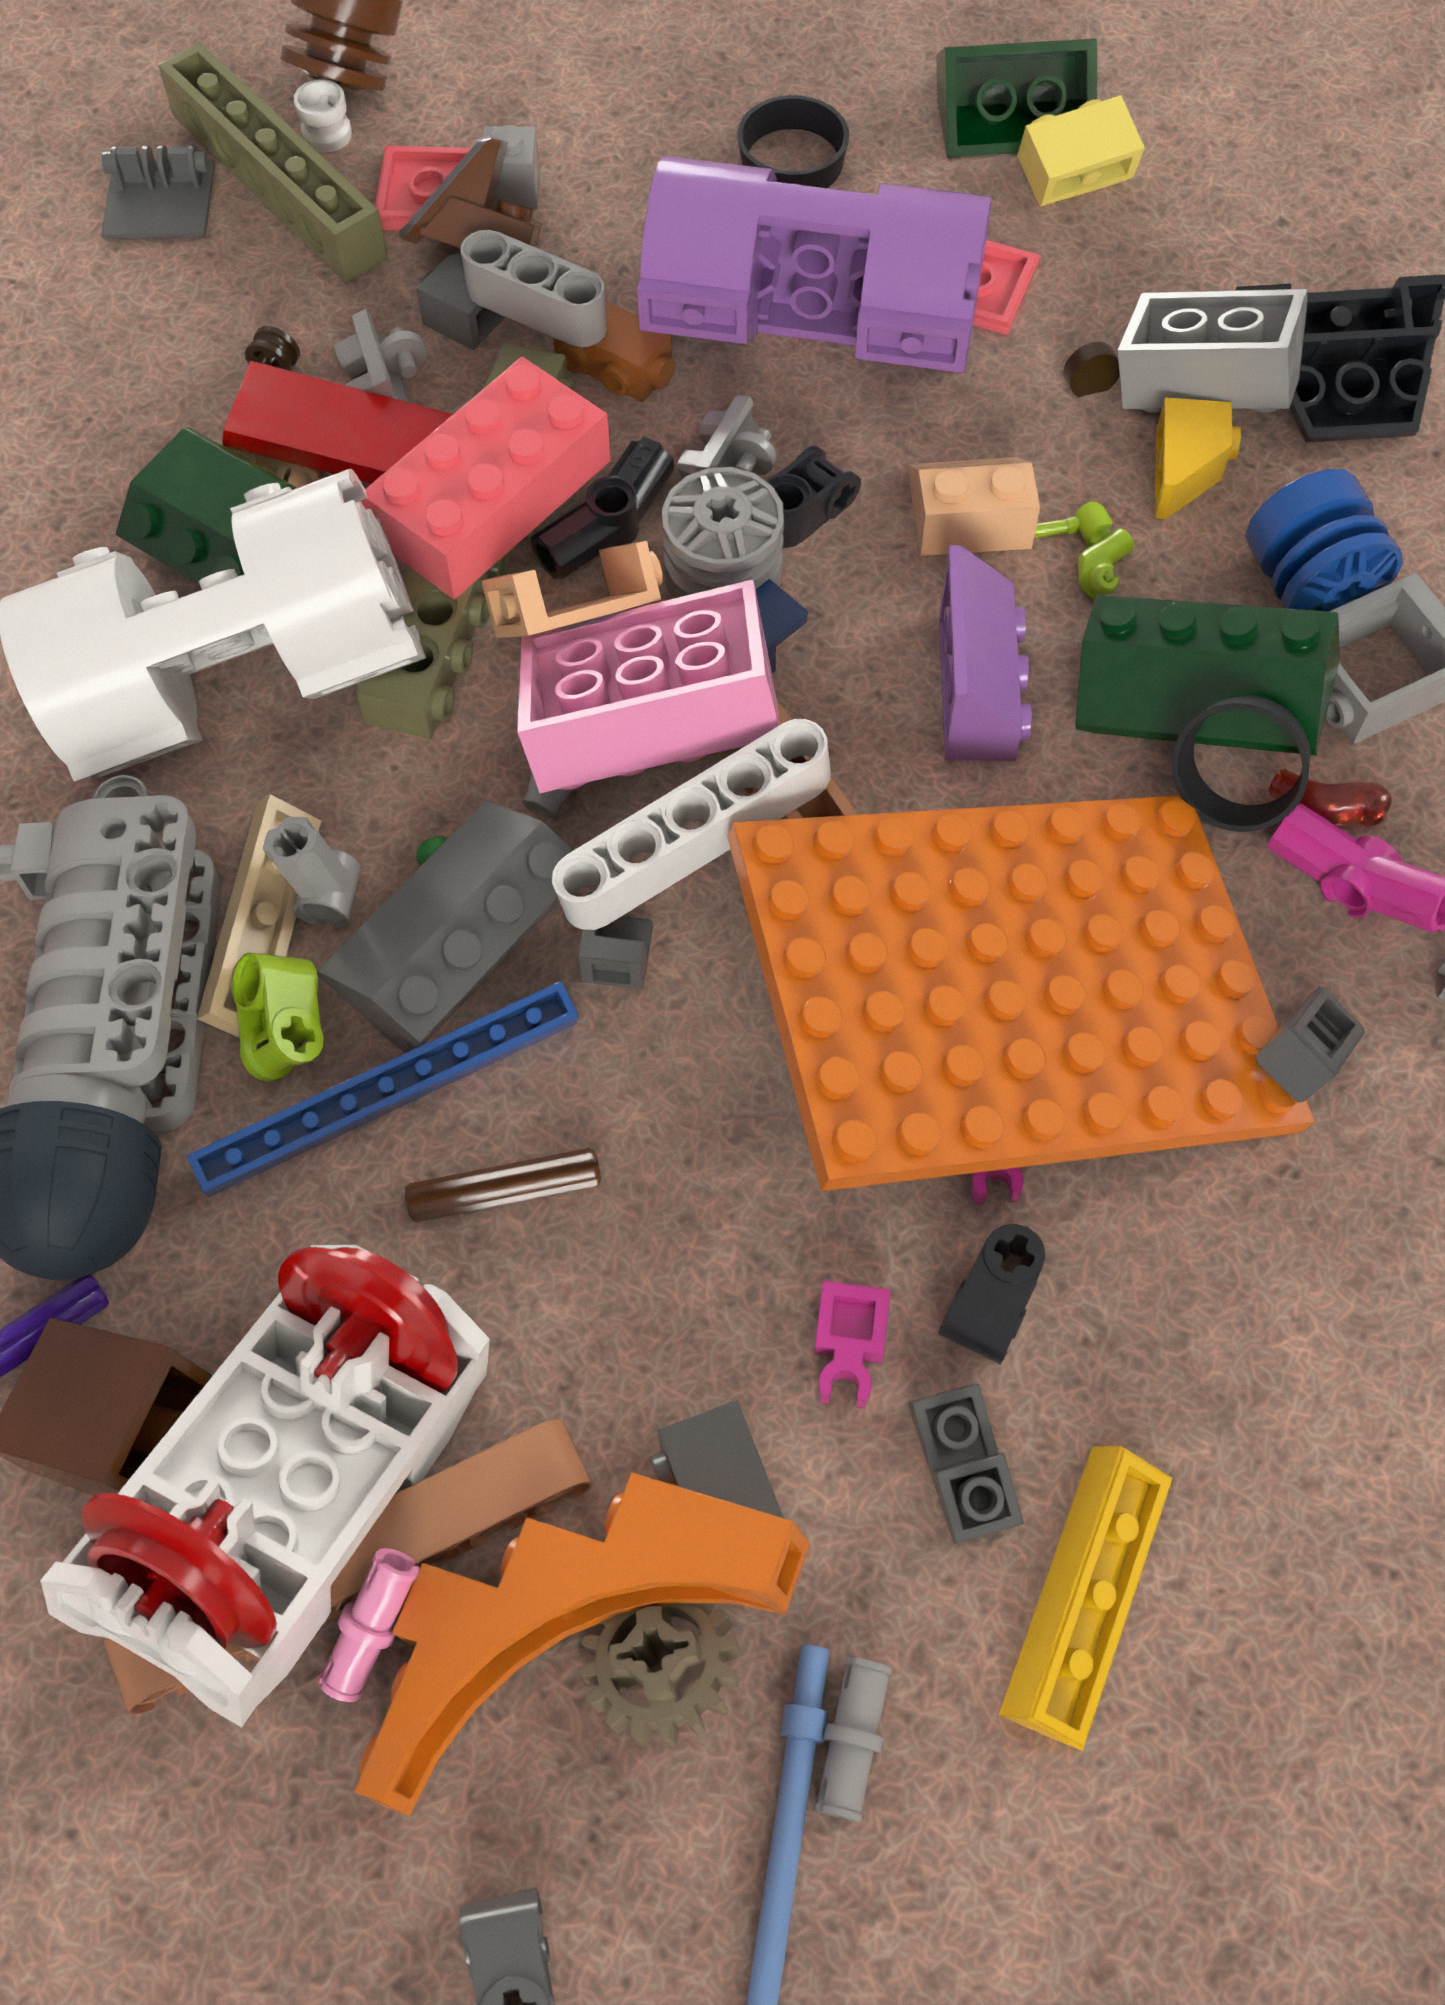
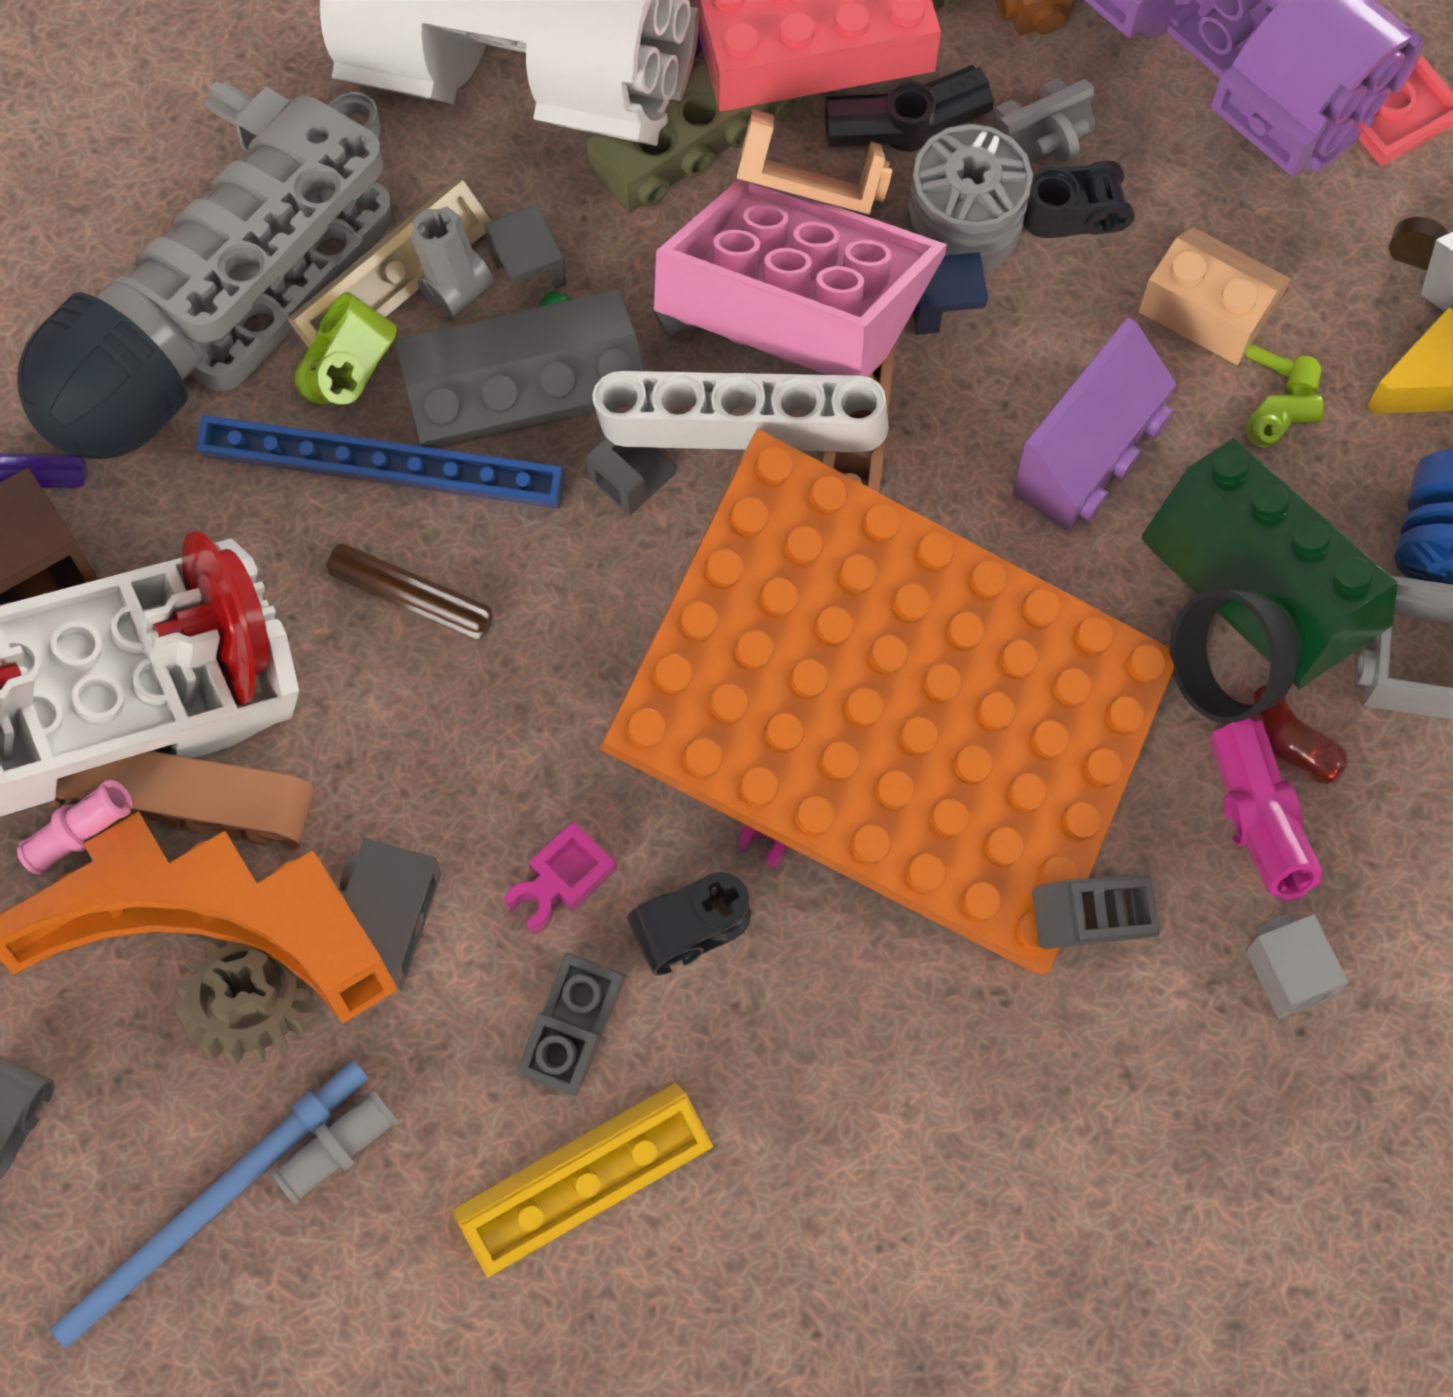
camera: 35 degrees right, 5 degrees up
(370, 817) = (525, 246): none -> dark grey panel

